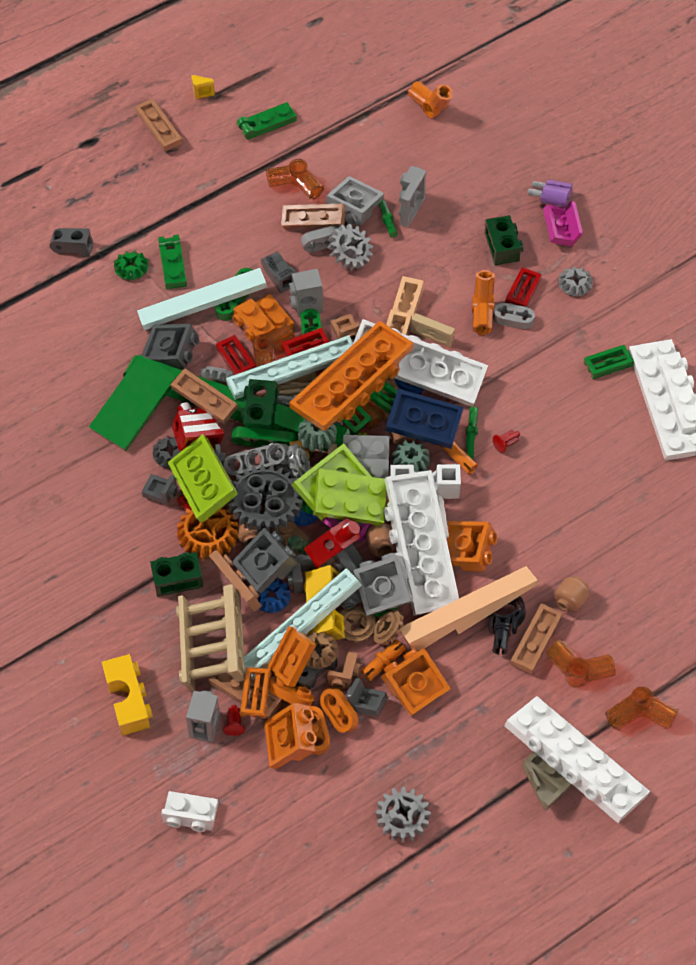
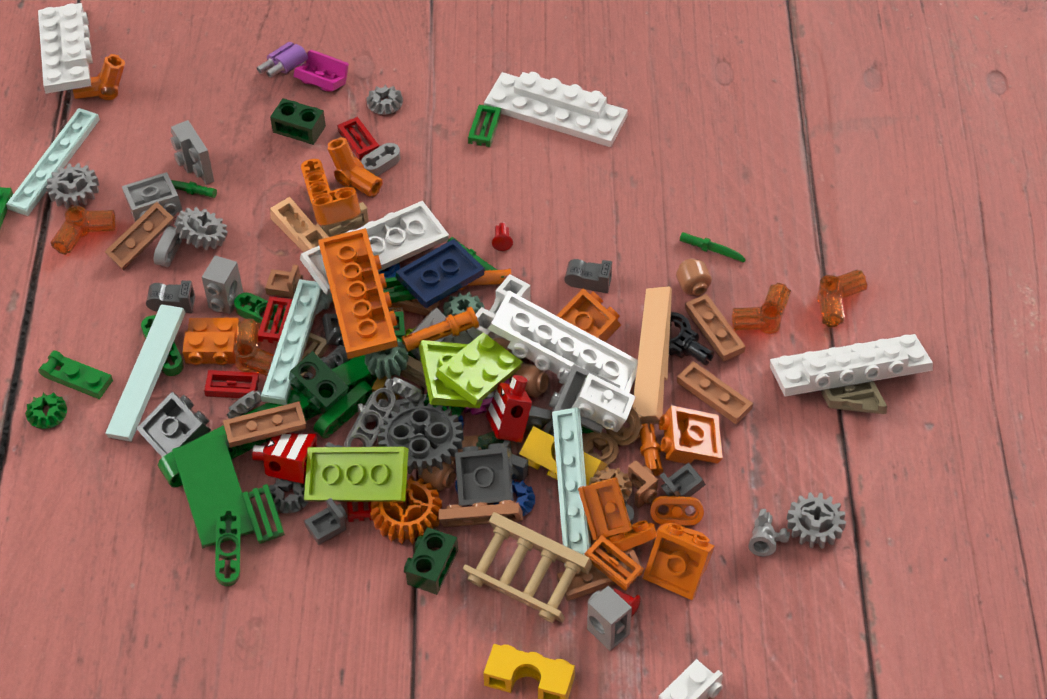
camera: 55 degrees left, 5 degrees down
(98, 432) = (235, 528): none -> green beam
(136, 444) = (256, 493): none -> green tile
(327, 148) = (72, 185): none -> light grey gear
(342, 122) = (56, 155): none -> light aqua tile
(364, 785) = (764, 537): none -> light grey piece
(374, 455) = (451, 326): none -> orange pin
(383, 597) = (604, 403): none -> white bracket
(431, 304) = (328, 205): none -> orange beam
(444, 56) = (65, 47): none -> white plate
(471, 674) = (714, 392): none -> nougat plate
(516, 522) = (589, 275): none -> dark grey leg
(617, 585) = (706, 244): none -> green piece

